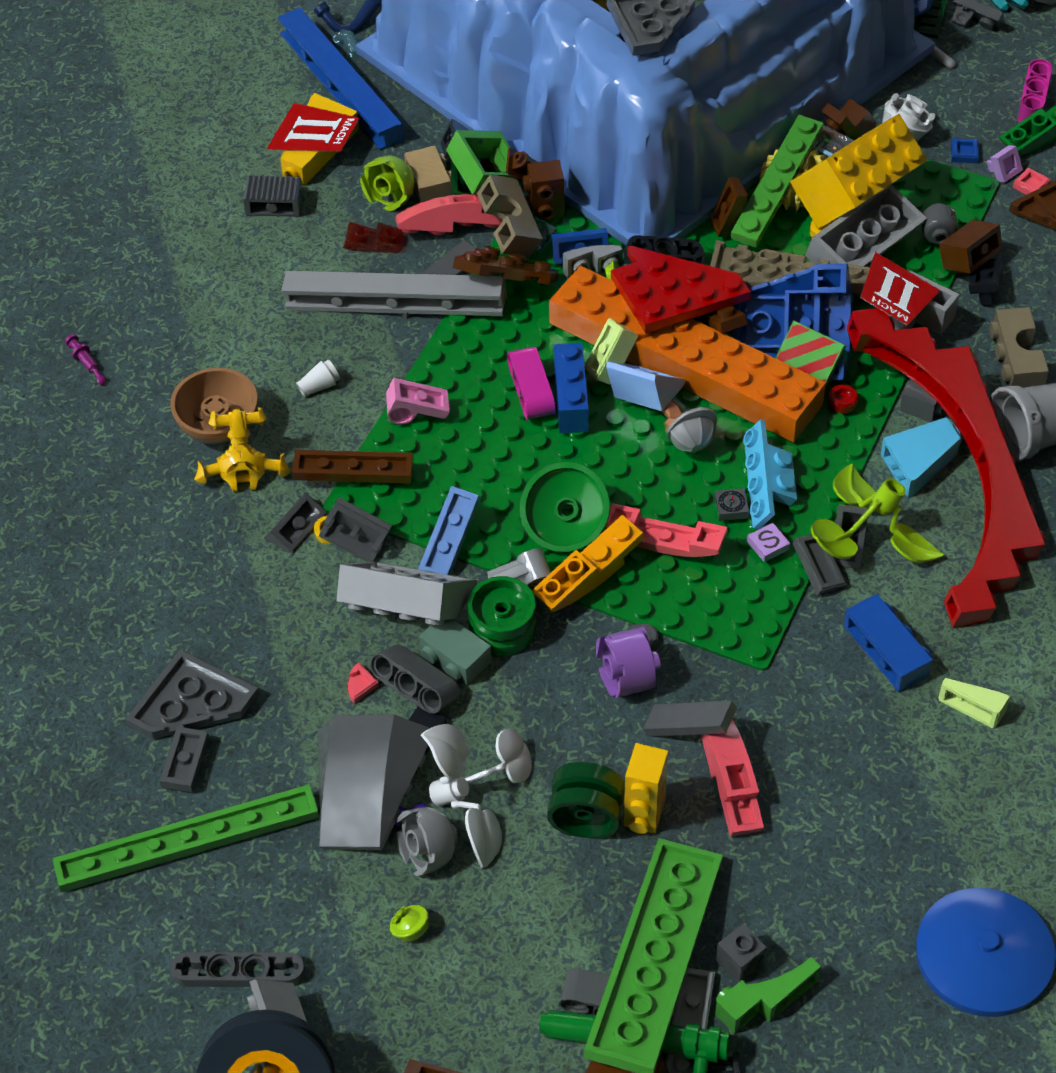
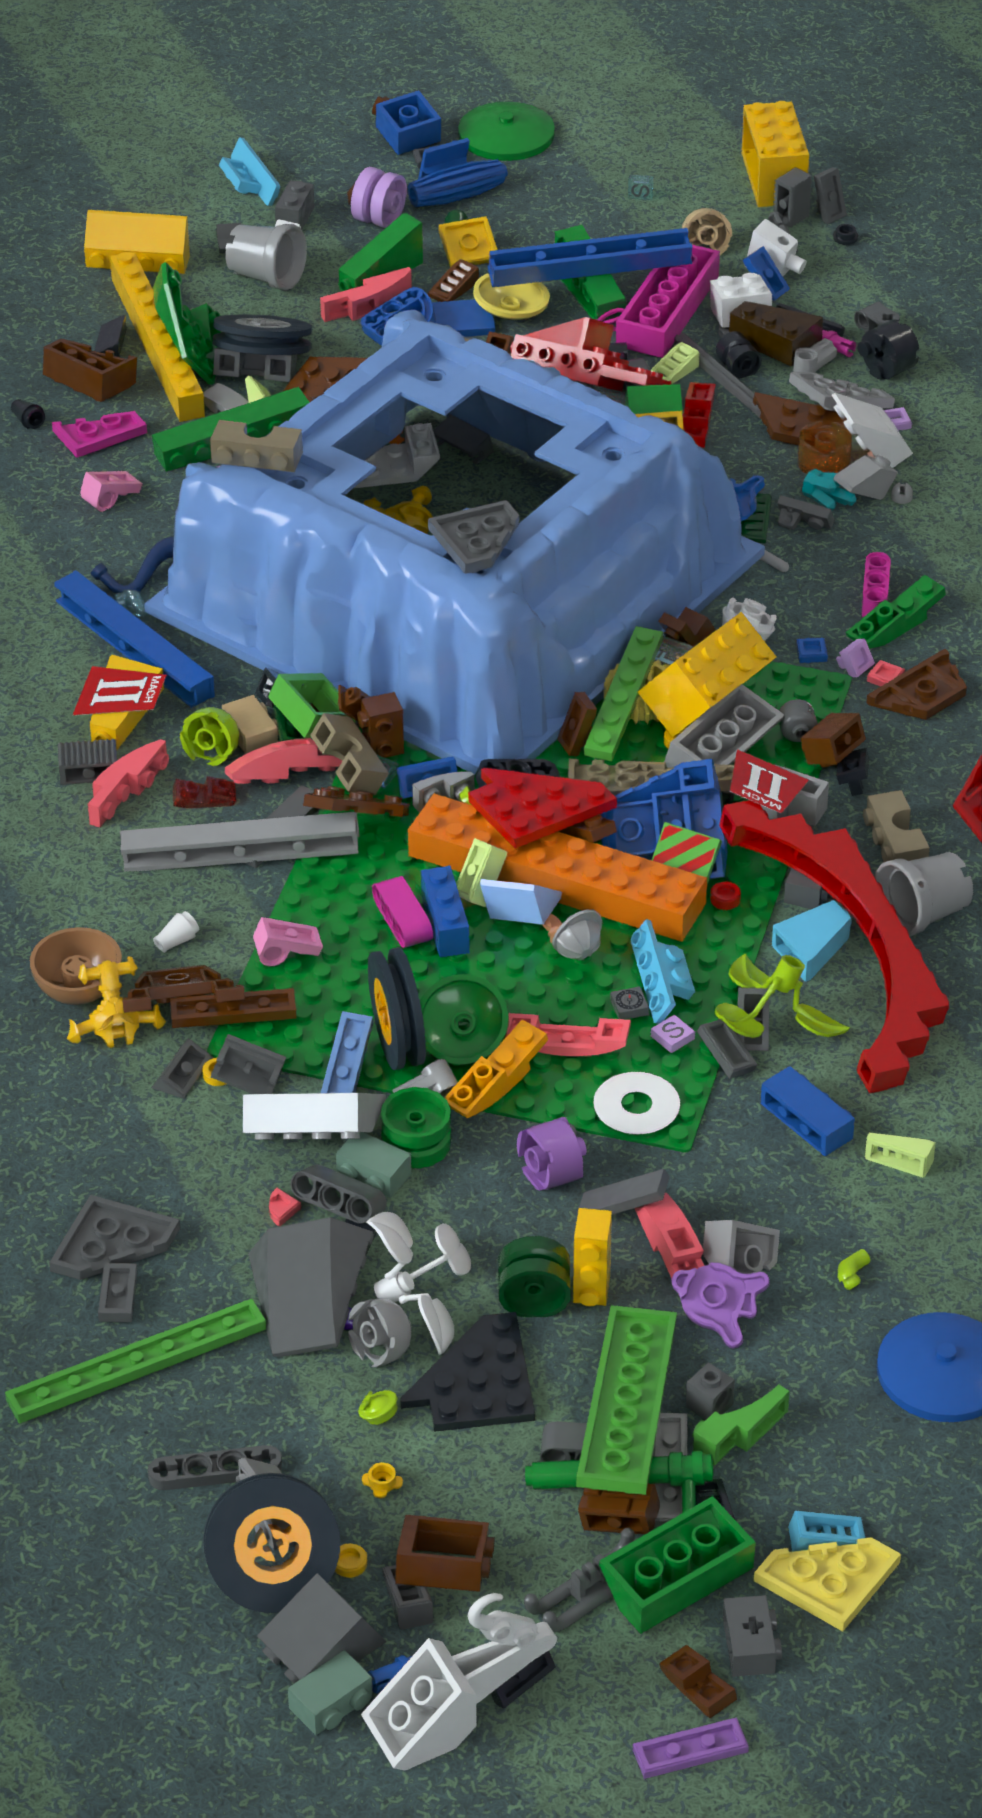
camera: 10 degrees left, 10 degrees down
(303, 214) = (126, 776): none -> coral slope
(305, 433) = (179, 982): none -> reddish brown wing
(394, 998) = (382, 1471): none -> yellow plate
(500, 493) = (396, 1008): none -> black wheel
(514, 903) = (478, 1379): none -> black wing
(697, 624) = (610, 1110): none -> white sticker
(767, 844) = (718, 1297): none -> medium lavender tile
(795, 795) = (741, 1245): none -> light grey slope
(903, 825) = (849, 1266): none -> lime arm

